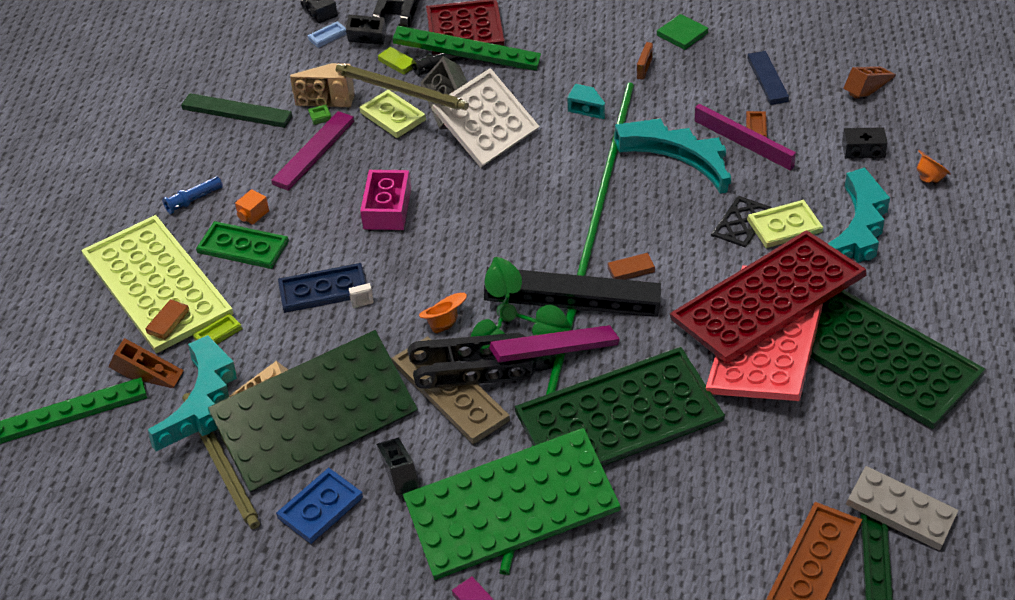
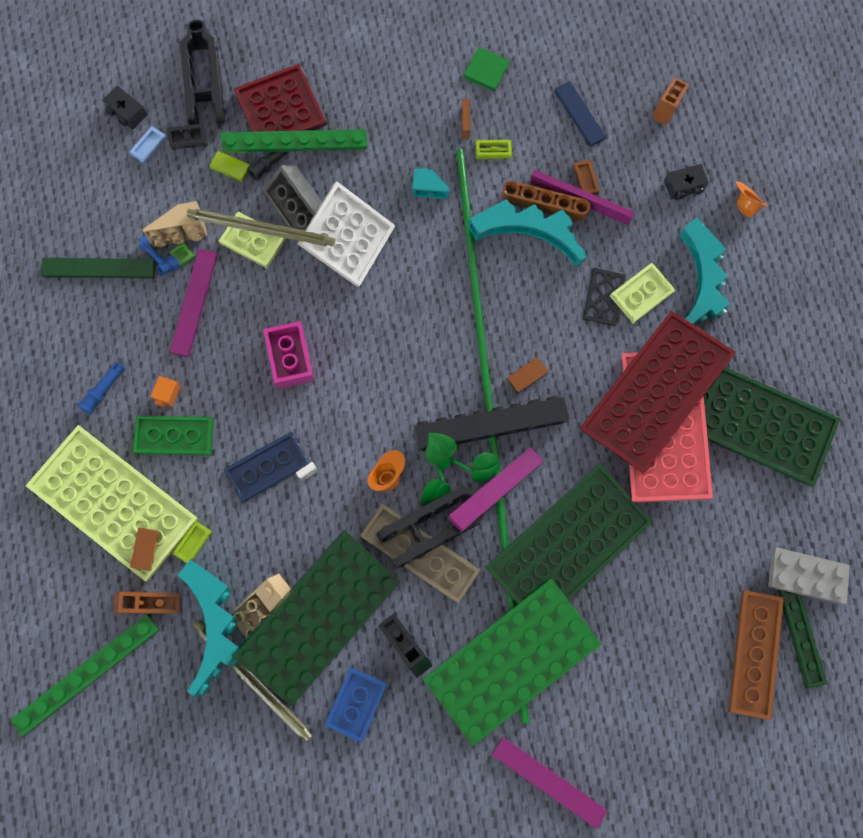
camera: 25 degrees left, 30 degrees up
(298, 116) = (165, 265): none -> blue brick
(667, 90) = (493, 152): none -> lime tile
(734, 141) = (554, 198): none -> dark orange beam

